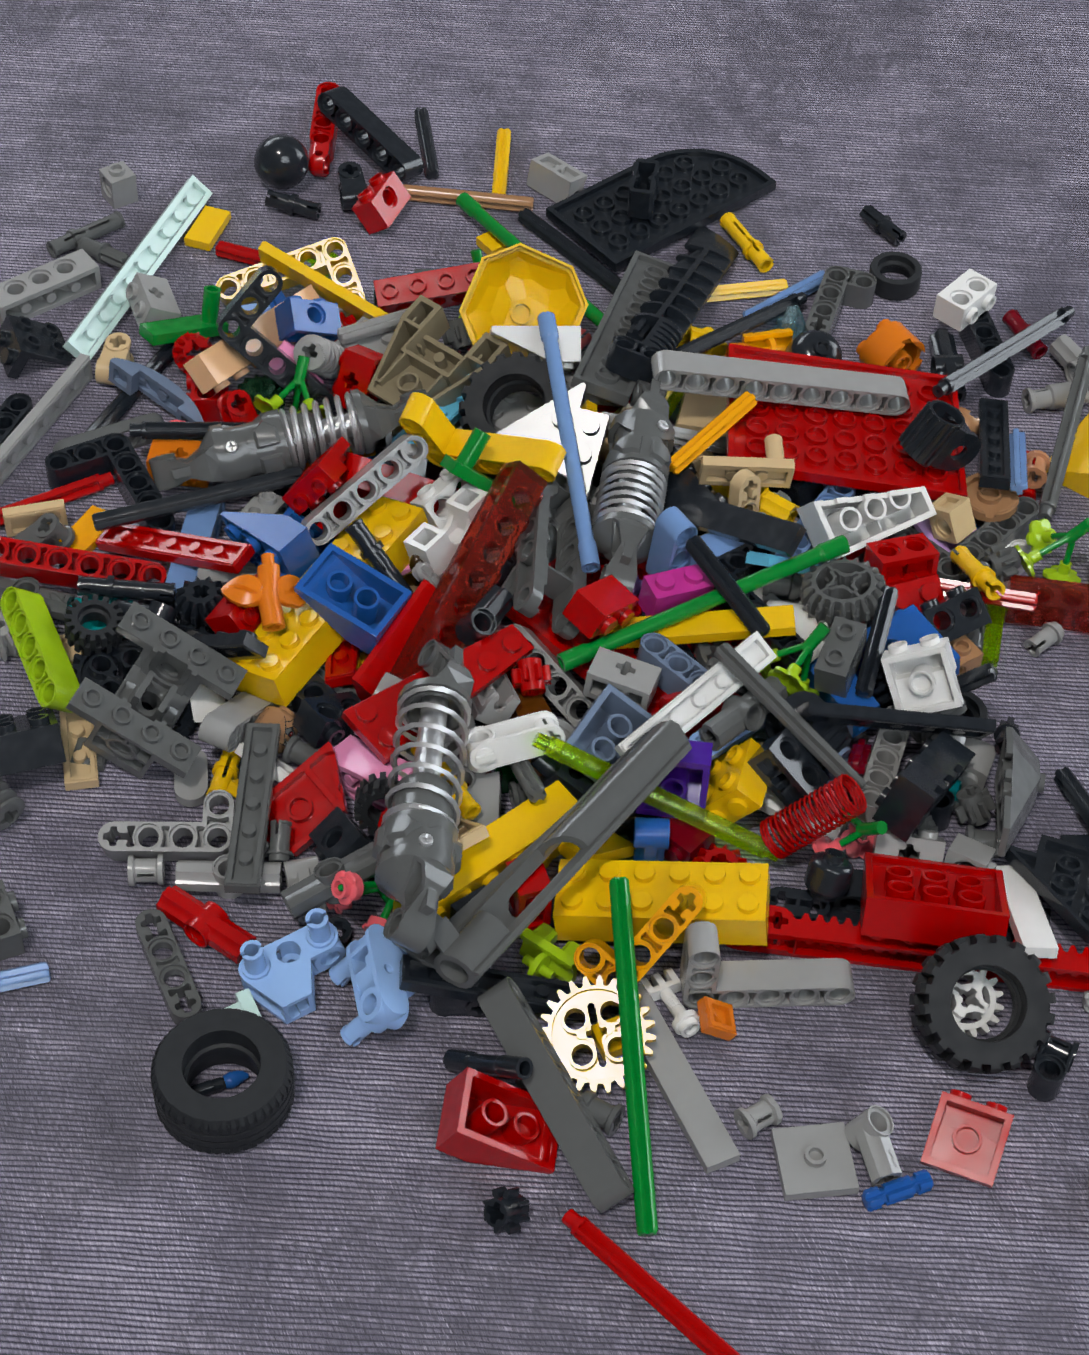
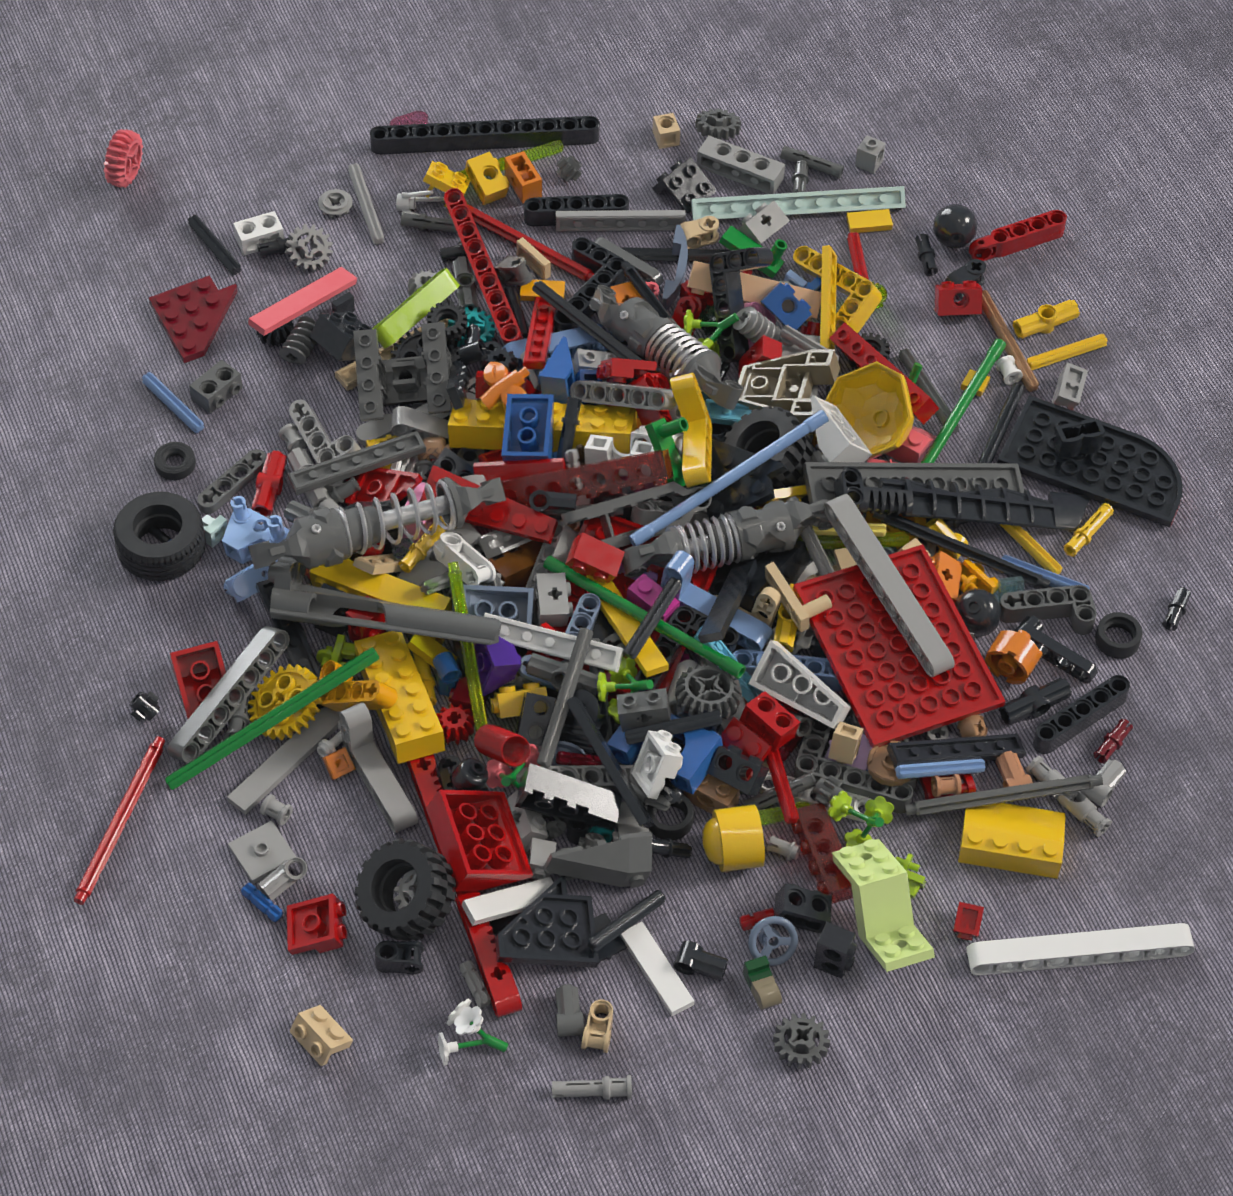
camera: 65 degrees right, 5 degrees up
(85, 1041) = (174, 472): none -> black tyre
(126, 589) = (484, 318): black pin -> none
(369, 133) = (1024, 261): black beam -> none
(426, 143) = (1061, 296): black axle -> none
(451, 156) = (1046, 319): none -> yellow piece
(500, 209) = (1009, 370): none -> white bush
(503, 1065) = (228, 657): black piece -> none
(531, 676) = (529, 551): red gear -> none
(712, 432) = (815, 564): light orange axle -> none
(919, 320) = (1056, 652): none -> black beam
(936, 433) = (903, 701): black piece -> none
(965, 300) = (1098, 676): white brick -> none
(981, 576) = (785, 773): yellow pin -> none
(1002, 351) = (1061, 724): piece -> none
(1034, 661) = (734, 838): none -> yellow piece
(1037, 421) = (1012, 770): none -> nougat piece

